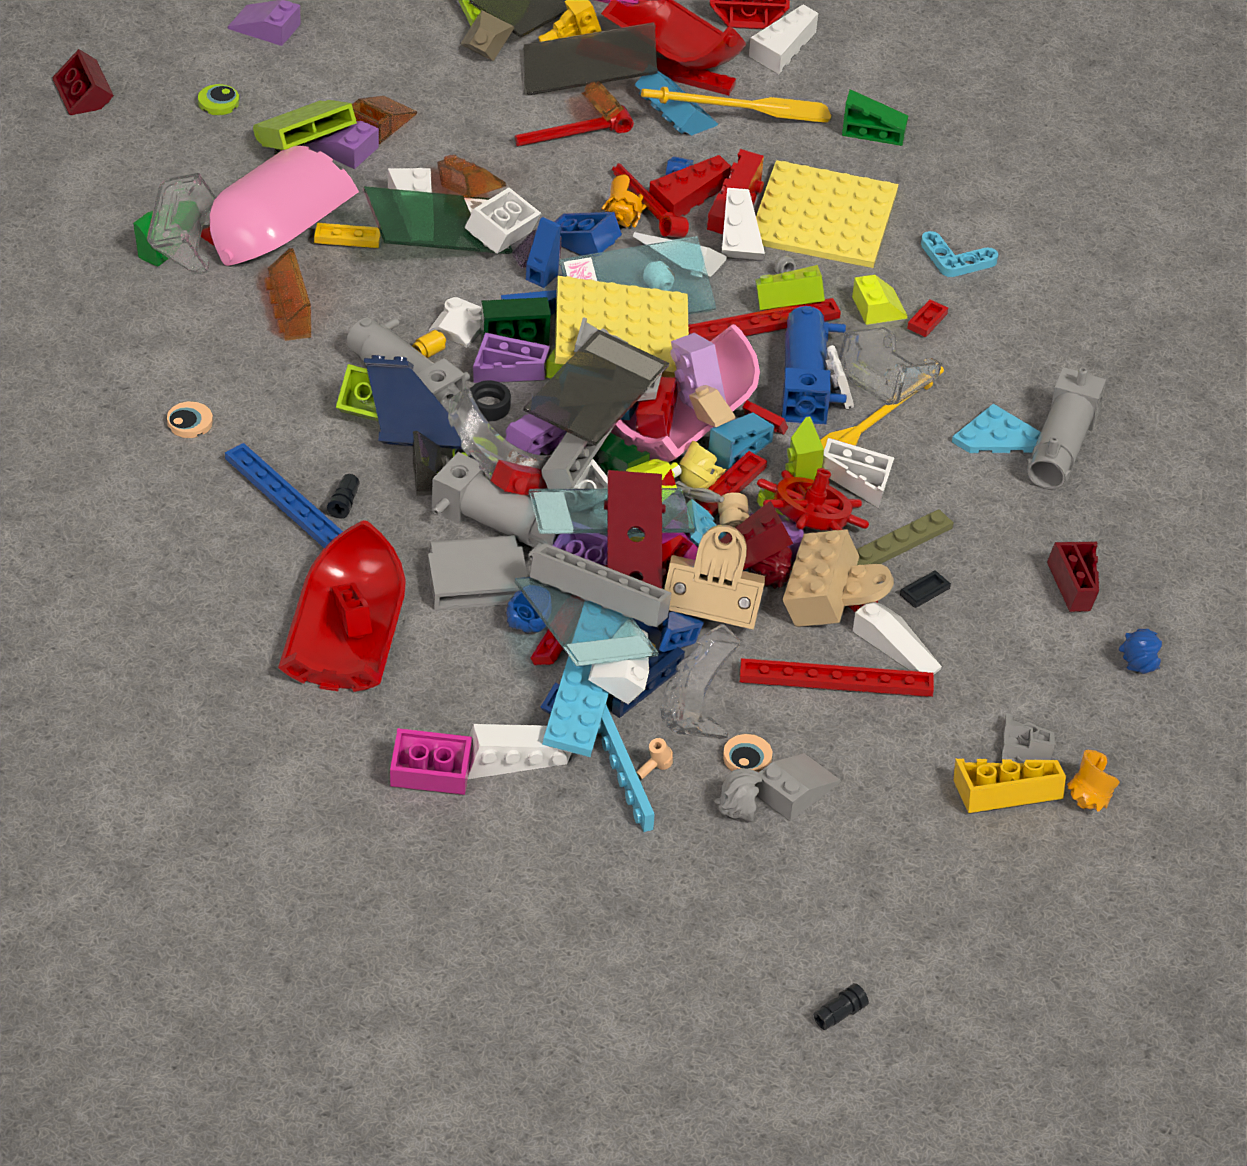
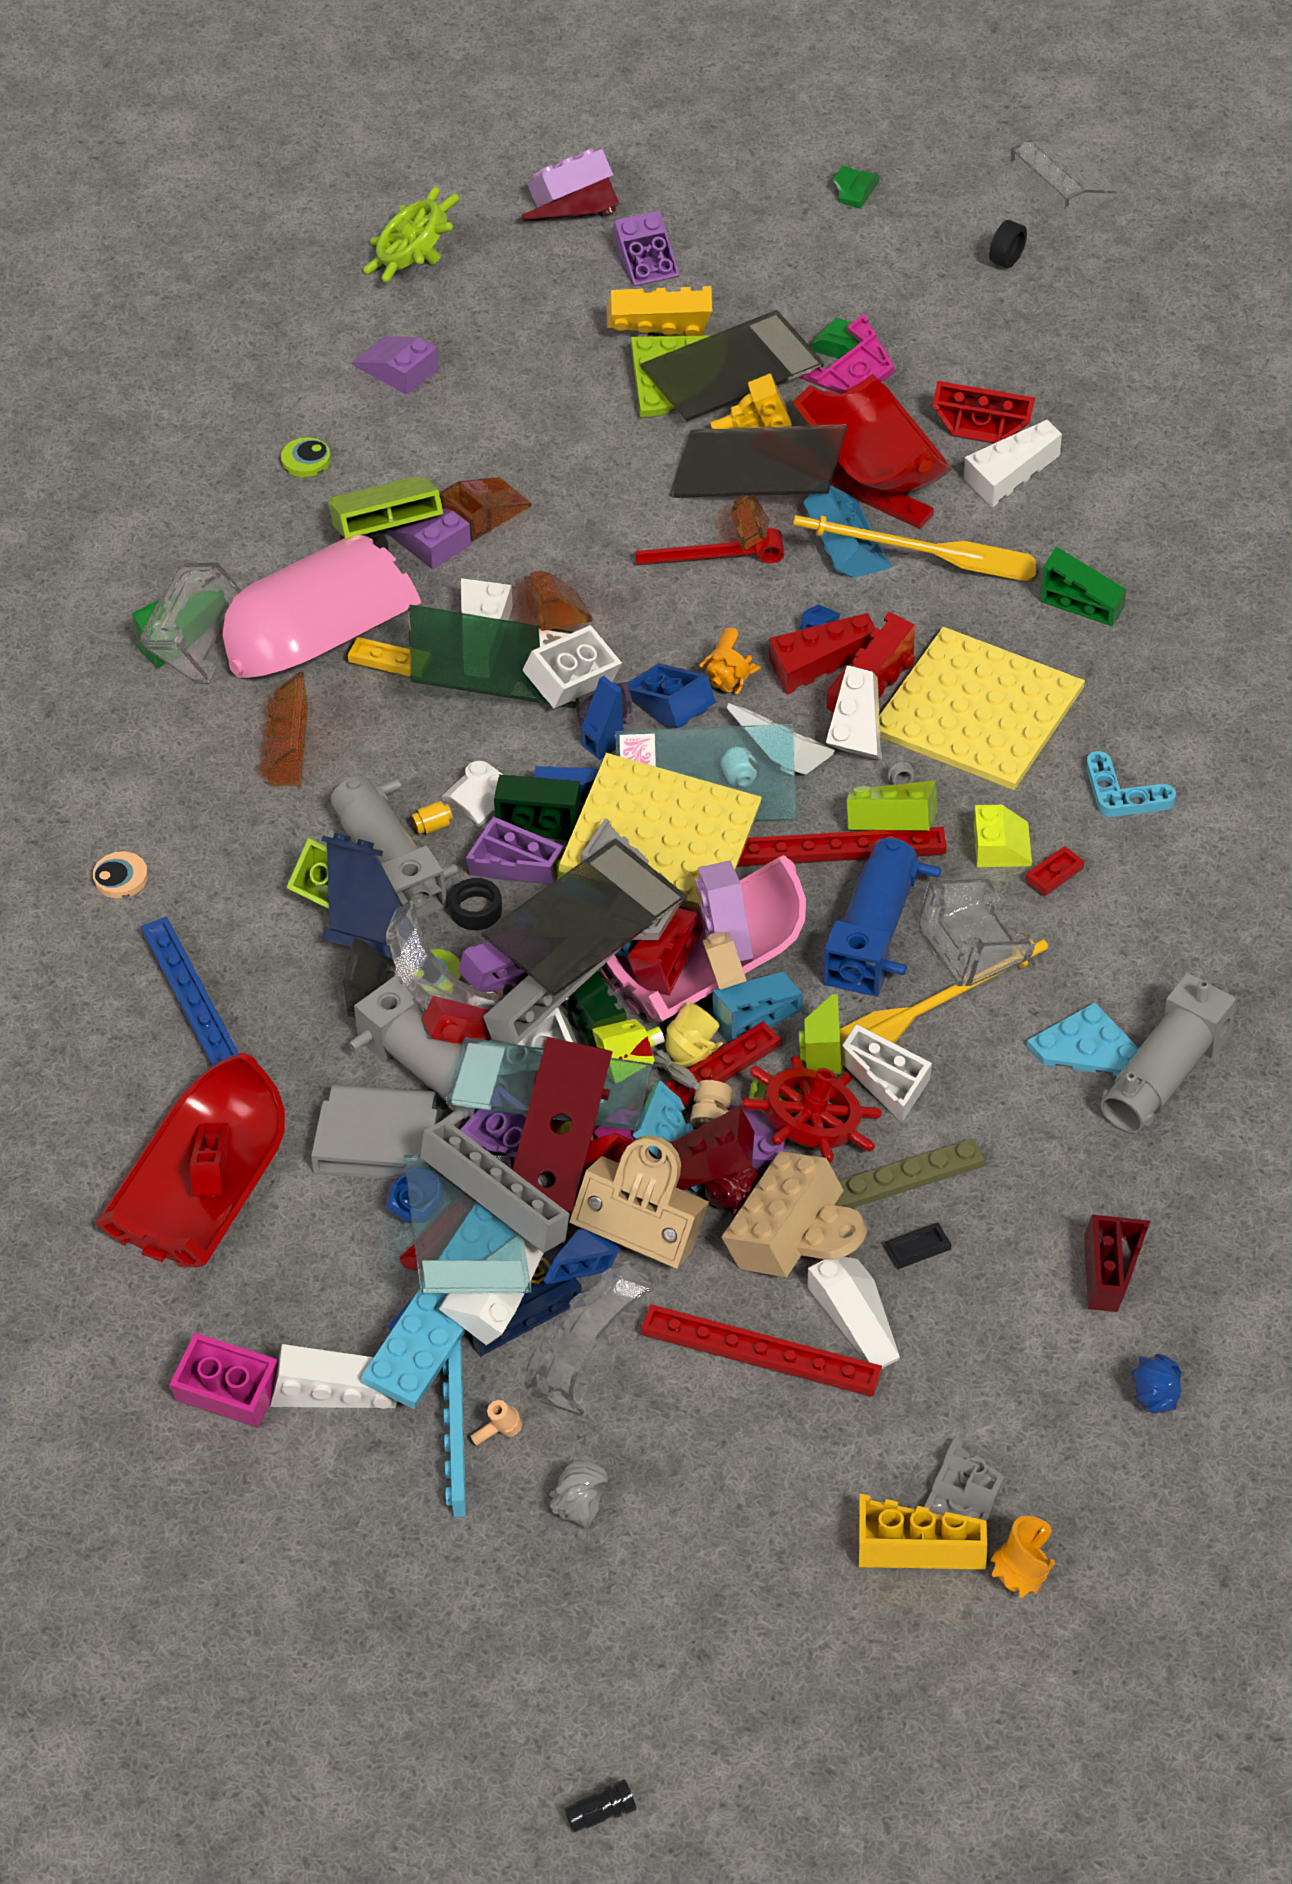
camera: 20 degrees right, 5 degrees up
(82, 84) = (155, 418): dark red slope -> none
(343, 497) = (262, 1000): black axle -> none
(487, 35) = (648, 413): dark tan slope -> none
(669, 223) = (778, 696): red piece -> none
(747, 752) = (615, 1436): tile -> none
(779, 423) = (806, 986): red plate -> none
(794, 784) = (657, 1487): light grey slope -> none
(838, 378) = (907, 940): white plate -> none

